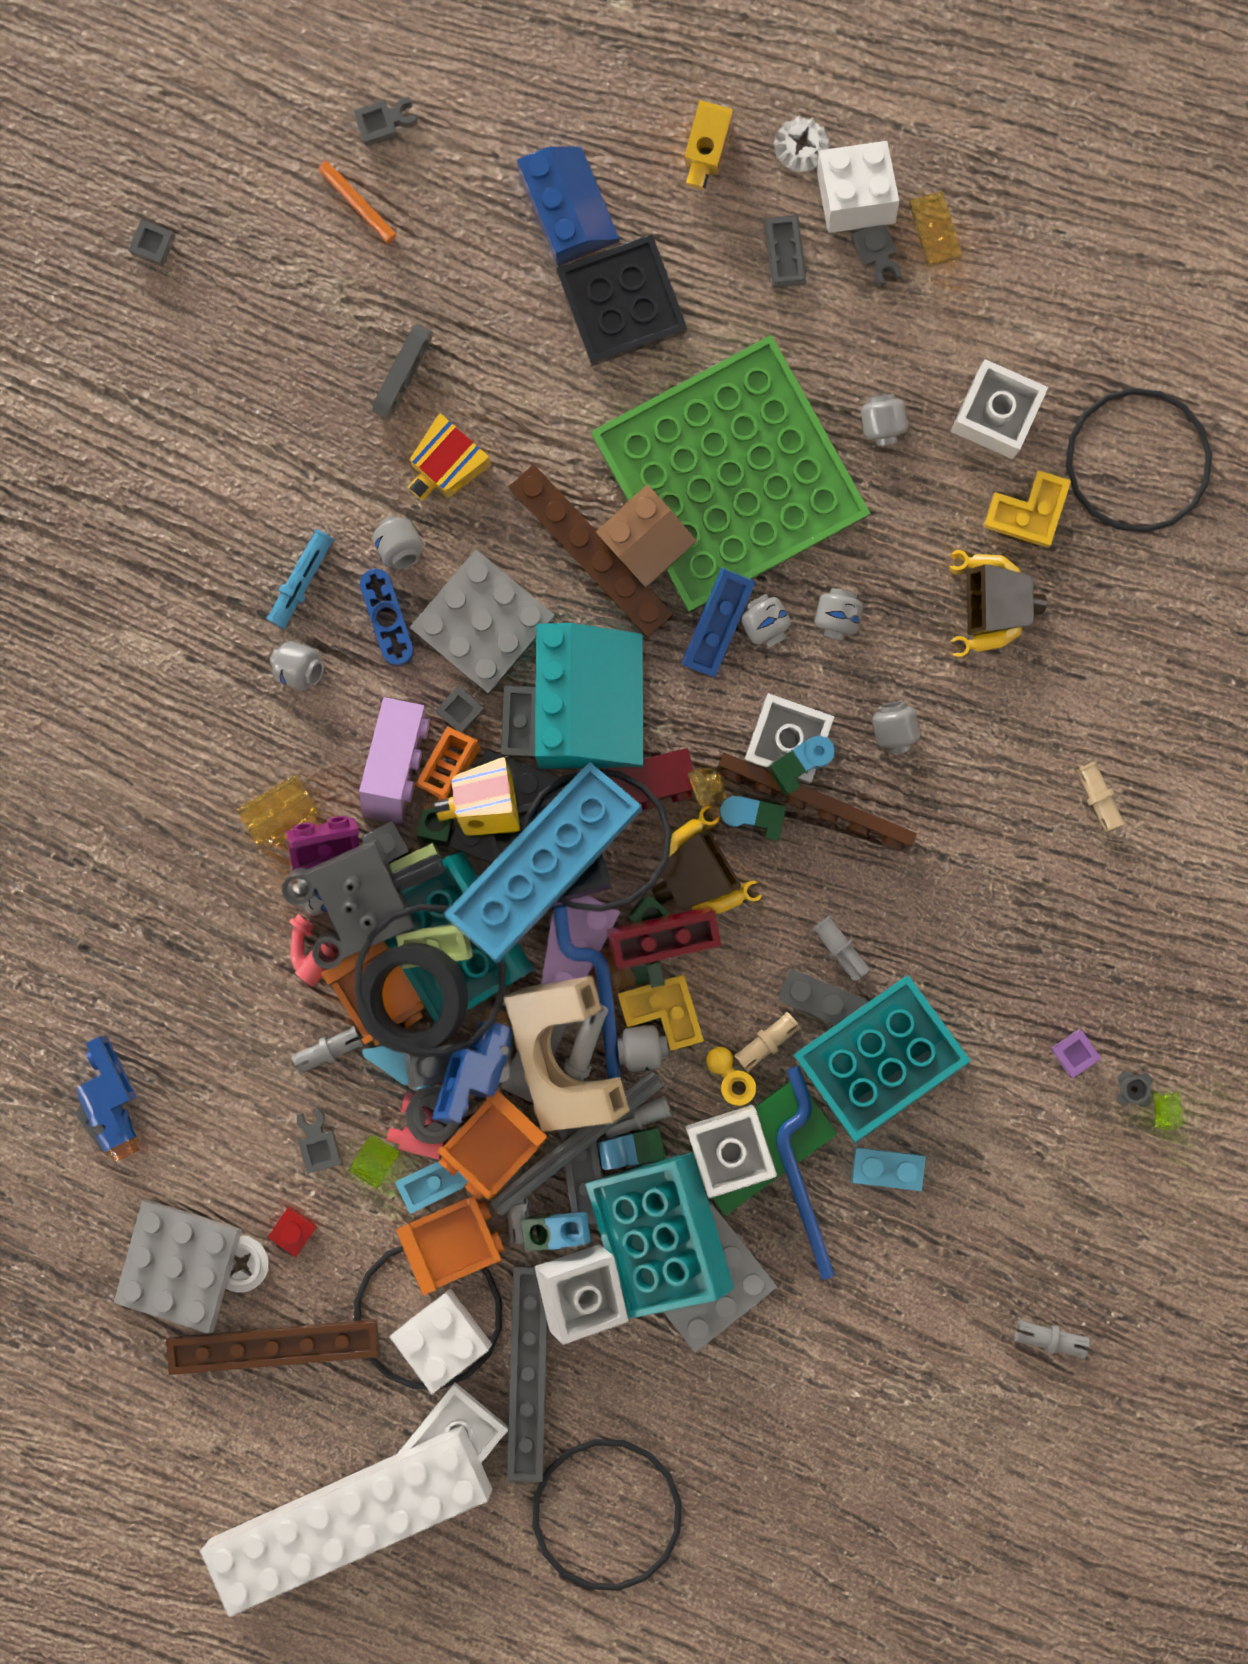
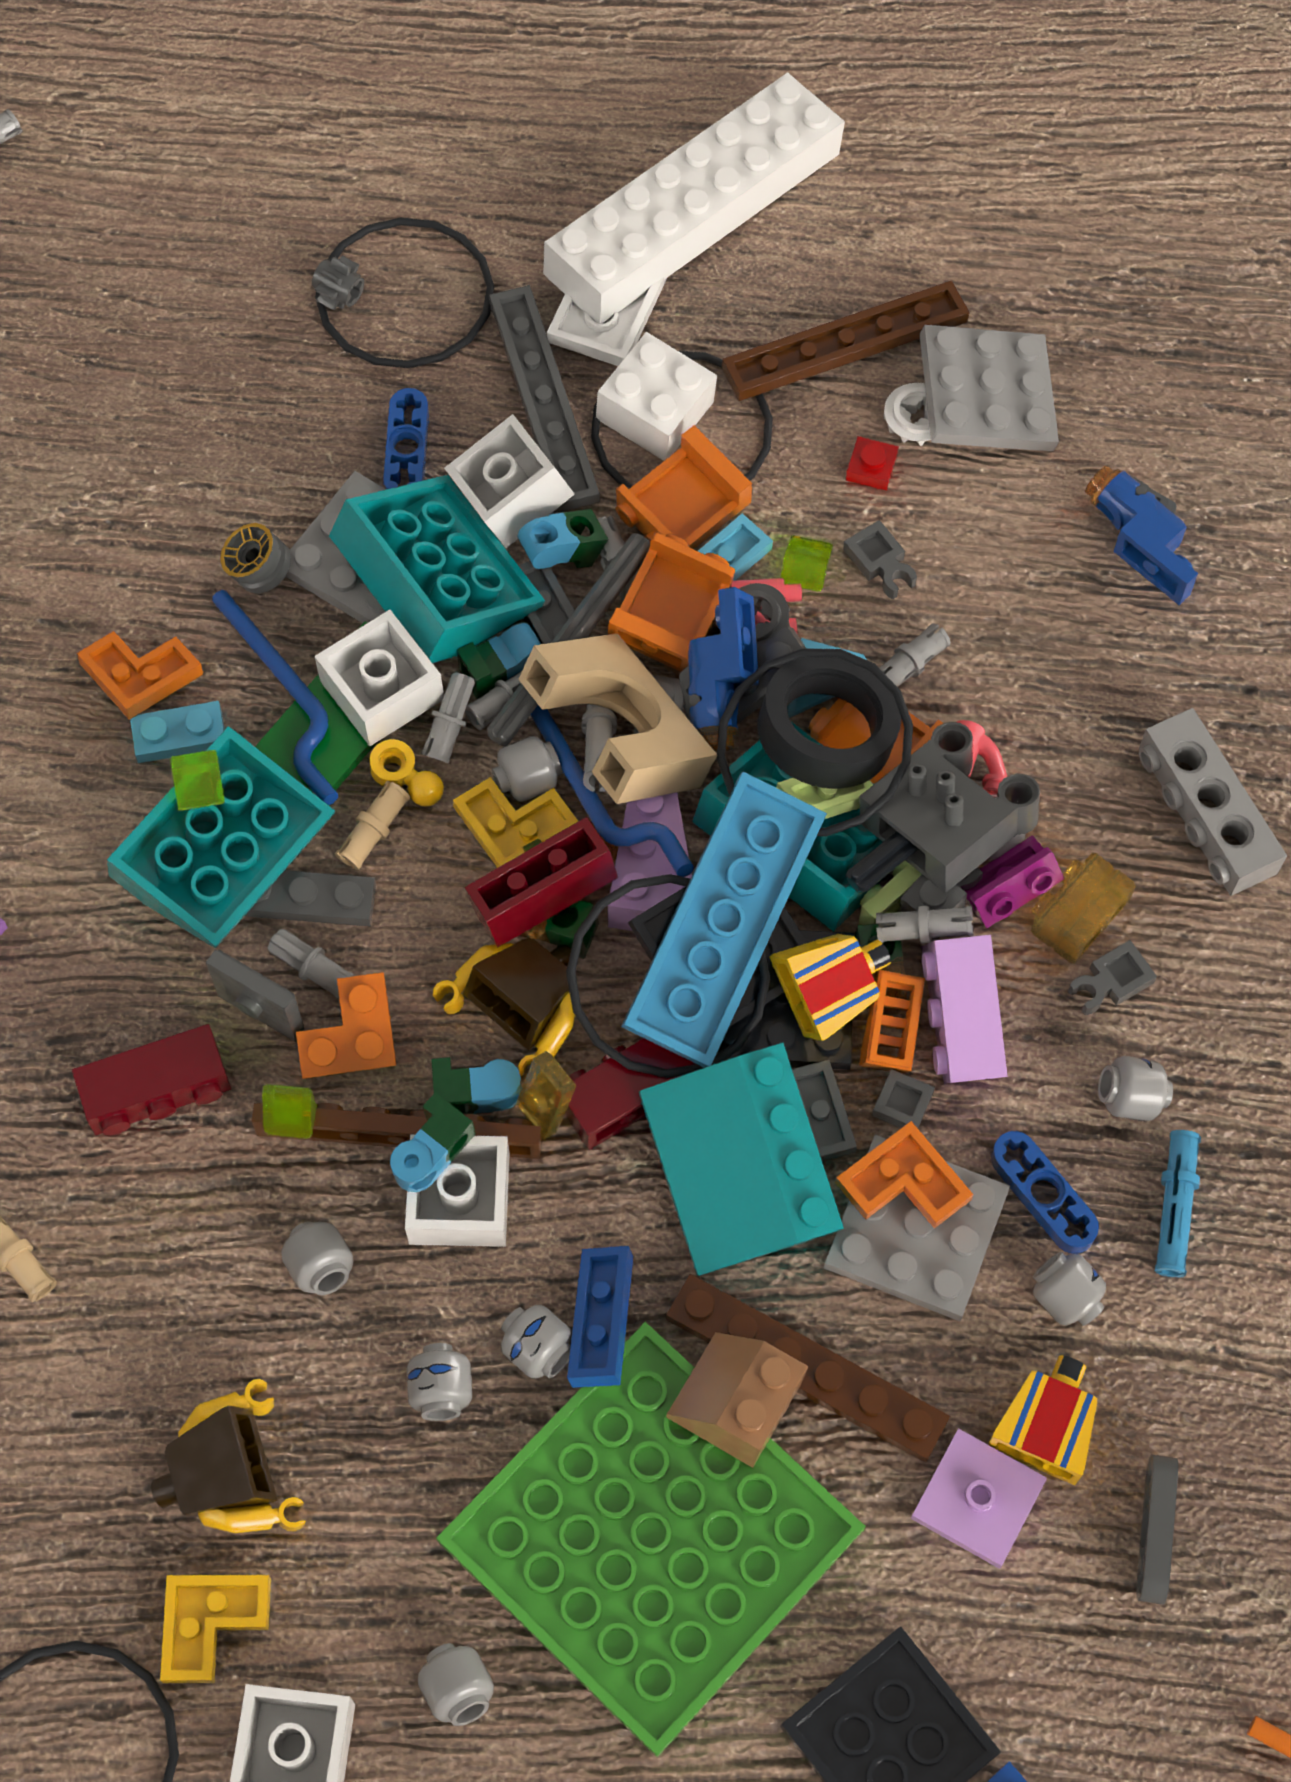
camera: 160 degrees right, 20 degrees down
(135, 812) = (1212, 778): none -> light grey brick
(273, 753) = (1116, 974): none -> dark grey plate
(400, 819) = (925, 924): none -> light grey pin
(478, 656) = (906, 1165): none -> orange plate
(509, 430) = (979, 1498): none -> lavender plate
(630, 1385) = (398, 431): none -> blue beam
(659, 1533) = (338, 282): none -> dark grey gear
(687, 1108) = (449, 718): none -> light grey axle
(798, 1305) = (255, 558): none -> dark grey wheel
(822, 876) = (361, 1041): none -> orange plate
(890, 826) = (288, 1111): none -> clear neon green slope
(890, 926) = (255, 994): none -> dark grey plate
(890, 1099) = (196, 780): none -> clear neon green slope
(906, 1216) = (134, 681): none -> orange plate
(976, 891) = (151, 1081): none -> dark red brick

